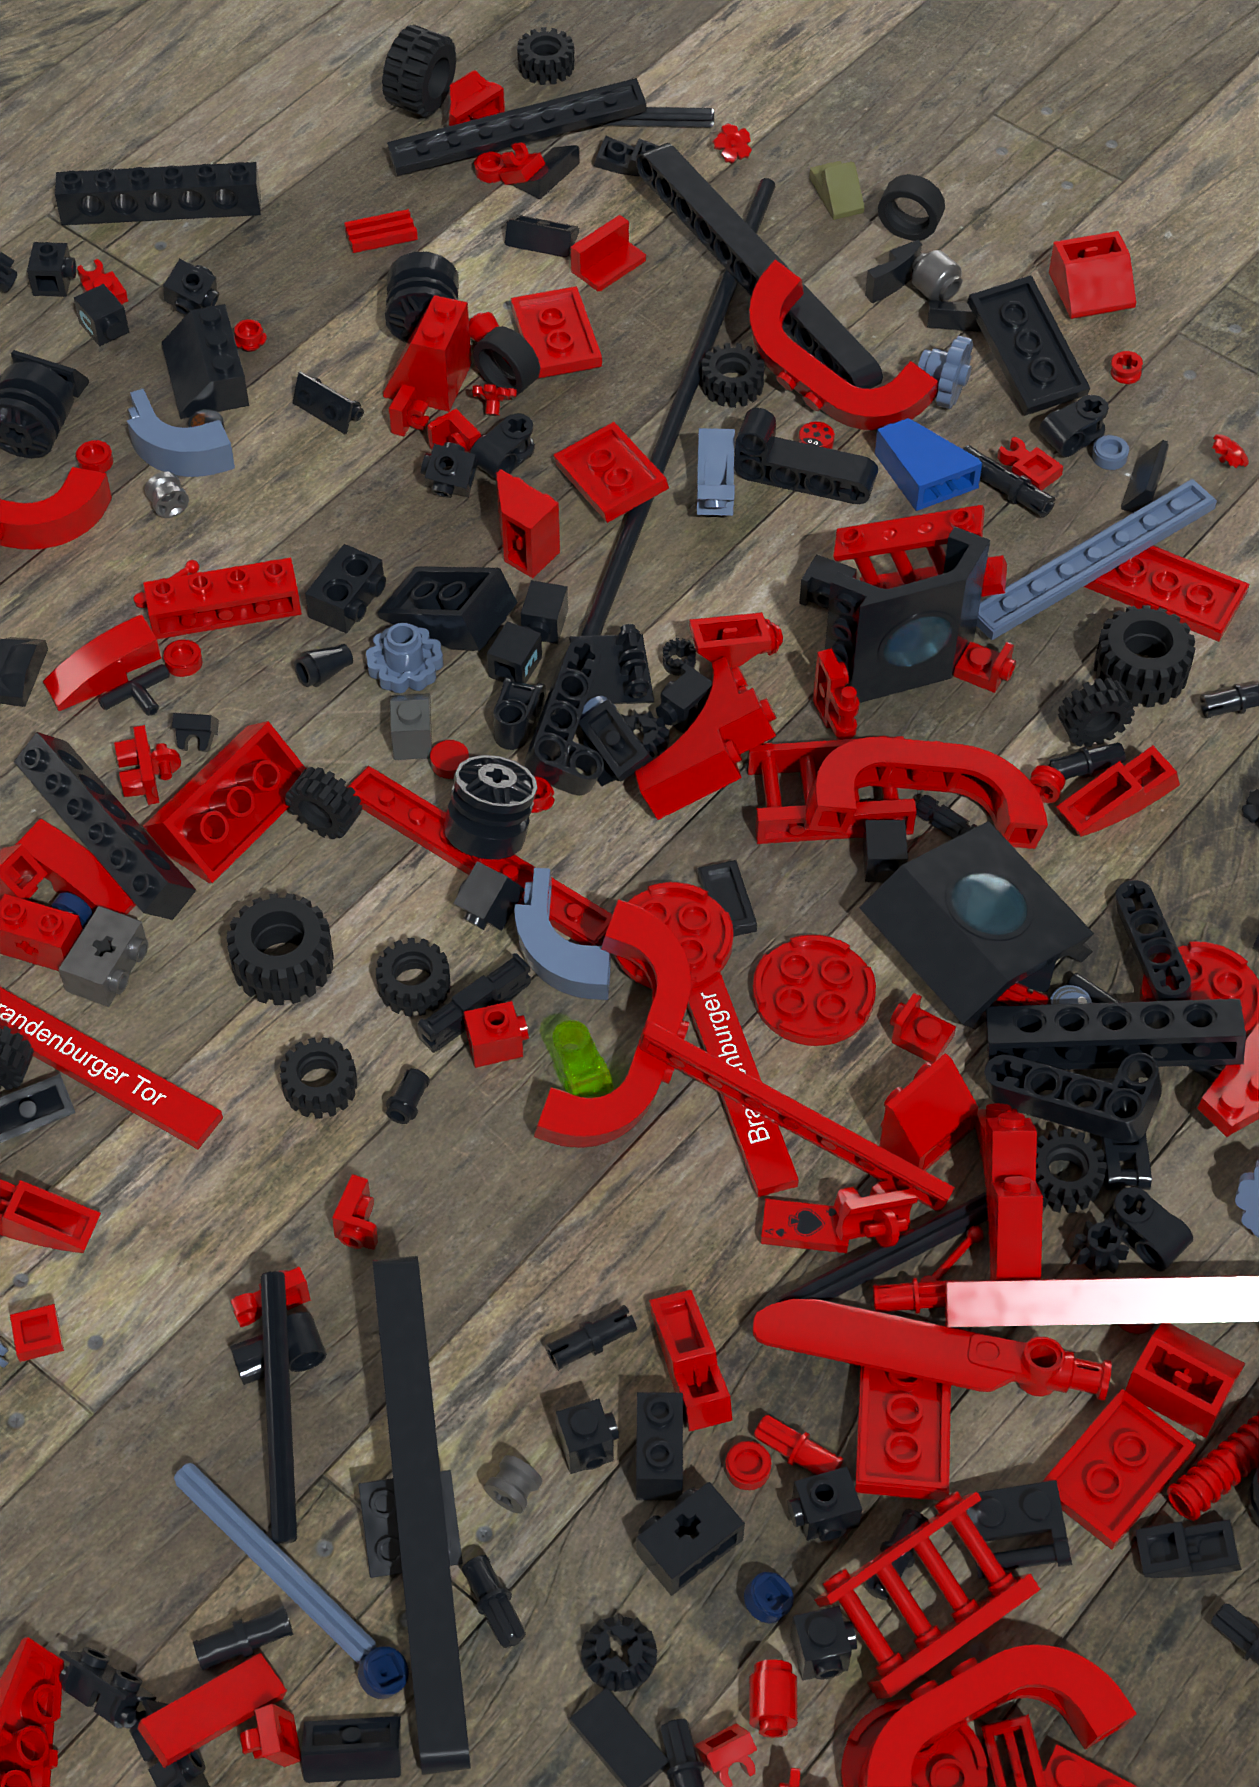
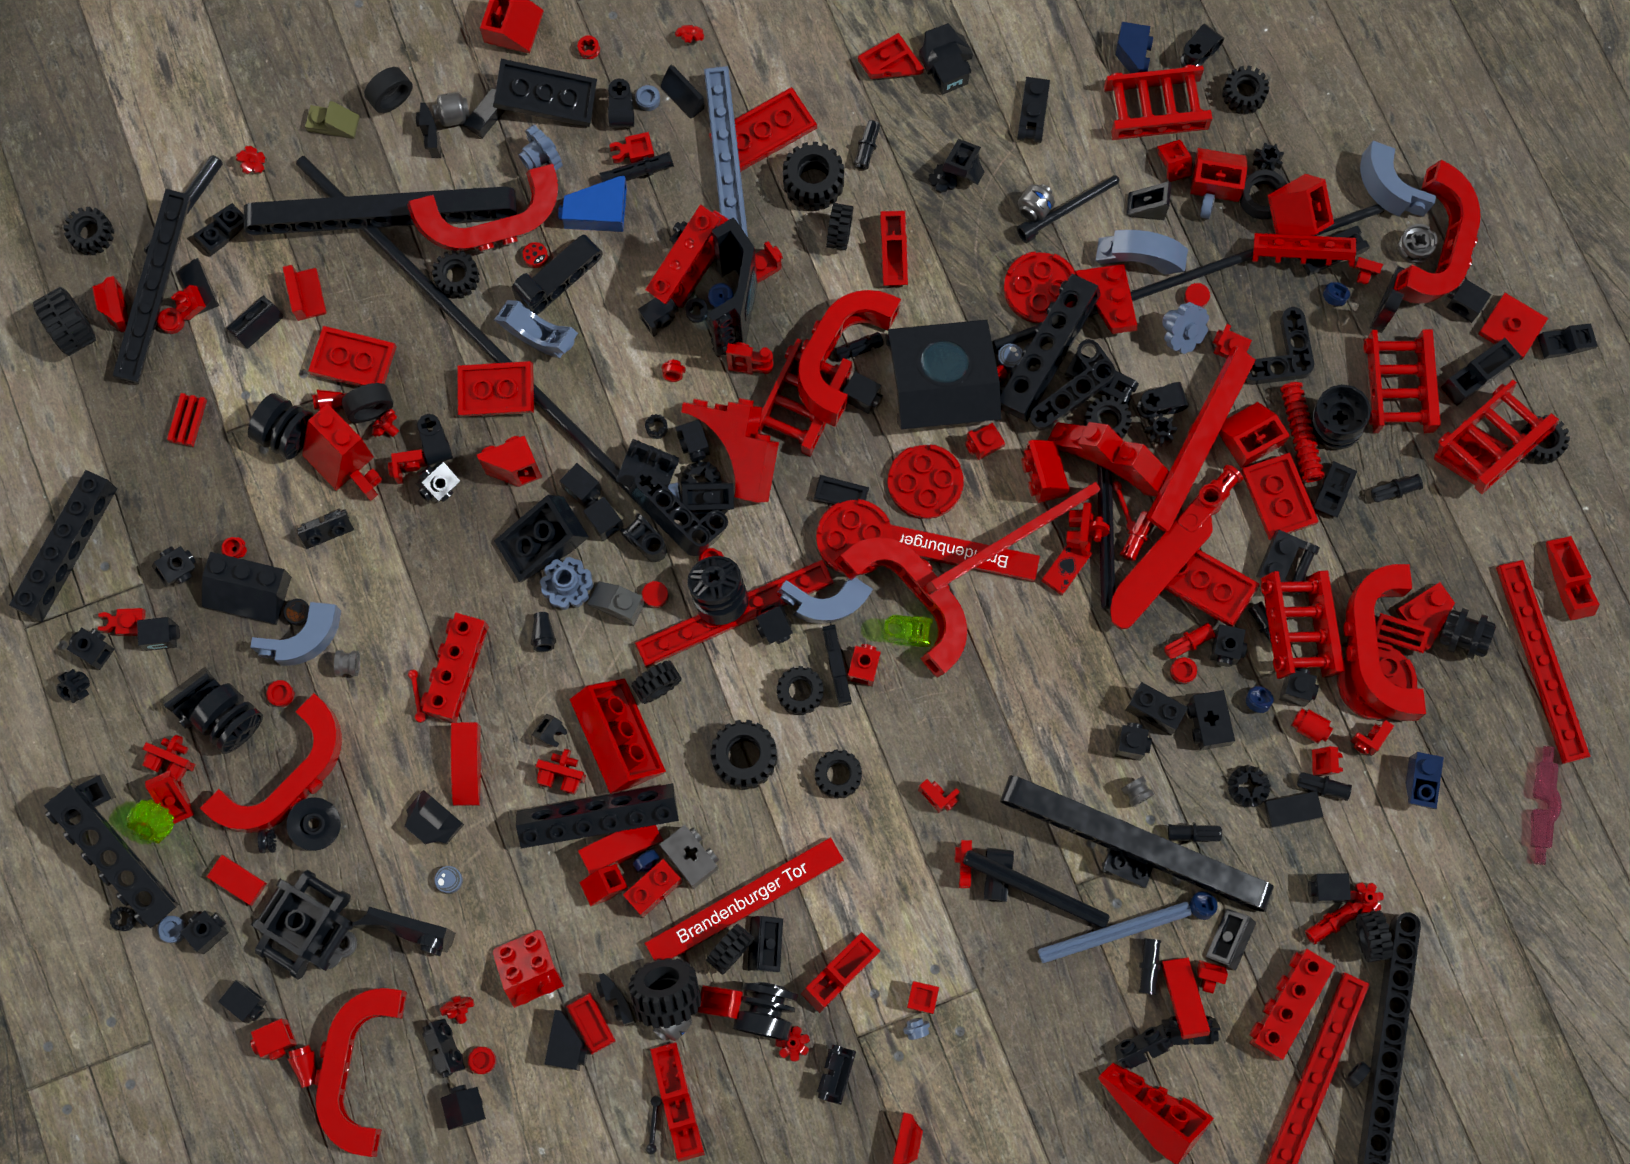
camera: 60 degrees left, 20 degrees up
(137, 689) = (493, 751): black piece -> none
(183, 658) = (484, 712): red tile -> none
(345, 588) = (488, 593): black brick -> none
(403, 1105) = (876, 732): black pin -> none
(591, 1337) = (1073, 710): black pin -> none
(691, 1360) = (1113, 666): red slope -> none
(730, 636) = (669, 390): red slope -> none
(1047, 782) = (865, 281): red bush -> none
(1087, 761) = (862, 251): black axle -> none
(1152, 943) = (999, 294): black beam -> none

